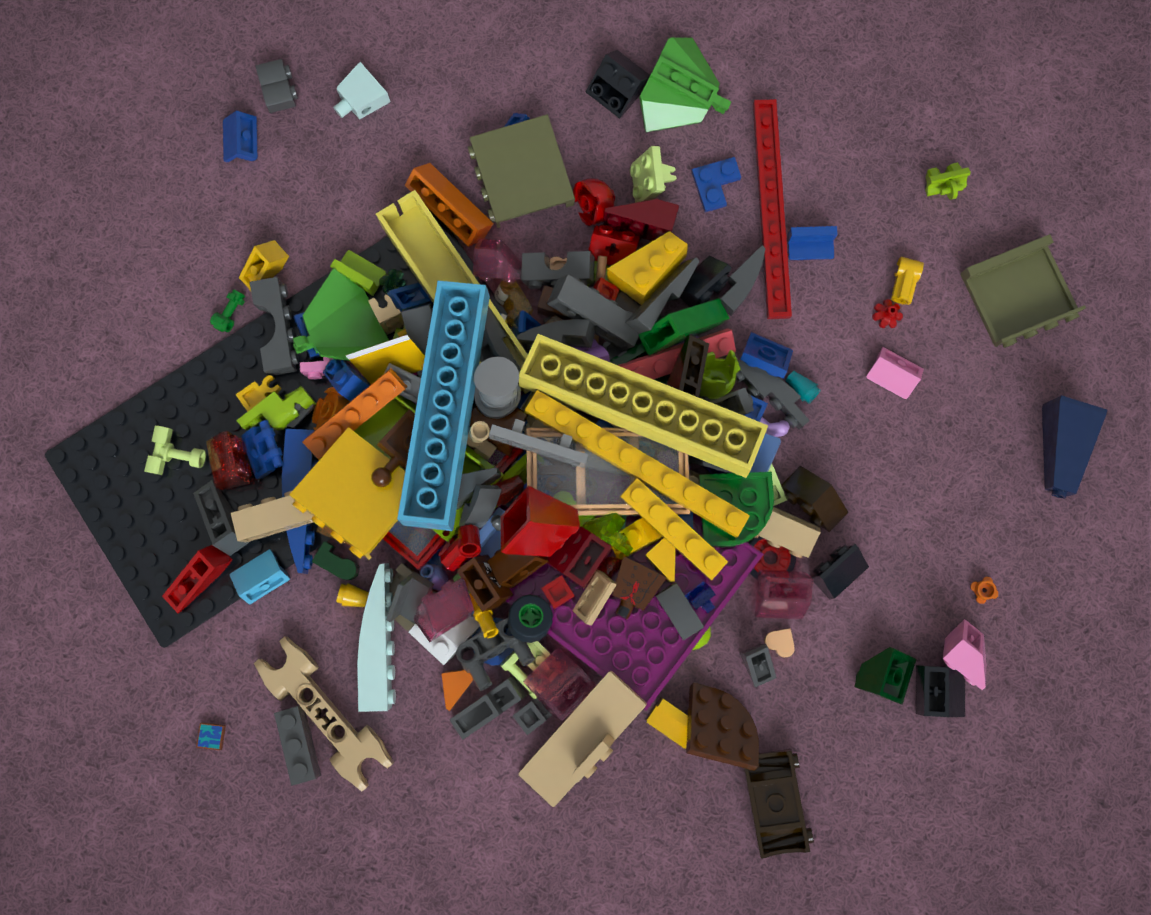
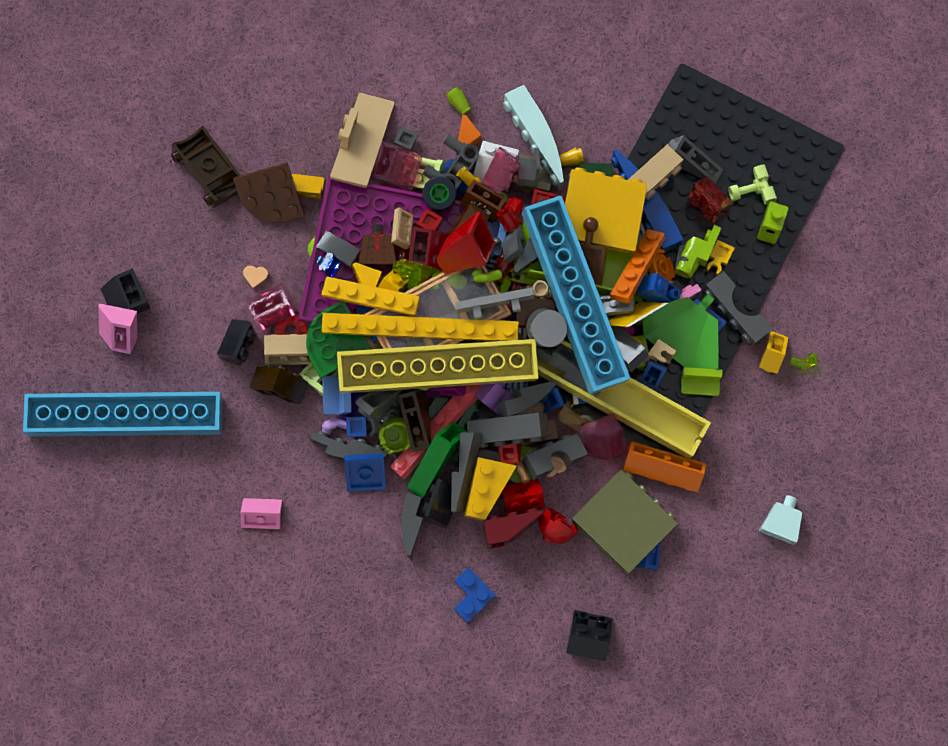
camera: 150 degrees right, 5 degrees down
(176, 400) = (772, 220): none -> lime torso
(196, 577) = (684, 114): red slope -> none
(210, 736) = (614, 25): tile -> none
(222, 321) = (779, 297): green bar -> none
(237, 239) = (805, 363): none -> clear neon green arm
(240, 137) = (852, 440): blue panel -> none
(258, 577) = (644, 137): medium azure panel -> none
(262, 449) = (691, 219): blue plate -> none
(275, 85) = (850, 494): dark grey brick -> none
(297, 745) = (552, 46): dark grey brick -> none
(354, 746) = (515, 63): tan piece -> none
(392, 280) = (671, 384): clear green plant -> none
(435, 575) = (522, 192): medium blue plant -> none
(443, 735) = (458, 100): none -> lime cone
(488, 707) = (437, 132): dark grey slope -> none
(531, 477) = (492, 276): none -> lime arm
(650, 175) = (523, 565): yellowish green plate -> none
(680, 88) = (539, 659): bright green panel -> none
(758, 664) = (264, 252): dark grey slope -> none
(772, 209) = (418, 596): red plate -> none
(803, 386) = (326, 466): teal cone -> none
(811, 242) = (372, 582): blue panel -> none
(886, 675) = (168, 287): dark green slope -> none
(887, 314) = (290, 561): red plant -> none
(907, 276) = (286, 592): yellow piece -> none
(947, 183) = (296, 683): lime hips -> none
(991, 590) = (123, 379): orange plate -> none
(1004, 553) = (123, 414): none -> medium azure brick
(1020, 292) = (190, 626): olive panel -> none
(1068, 442) = (106, 521): dark blue slope -> none

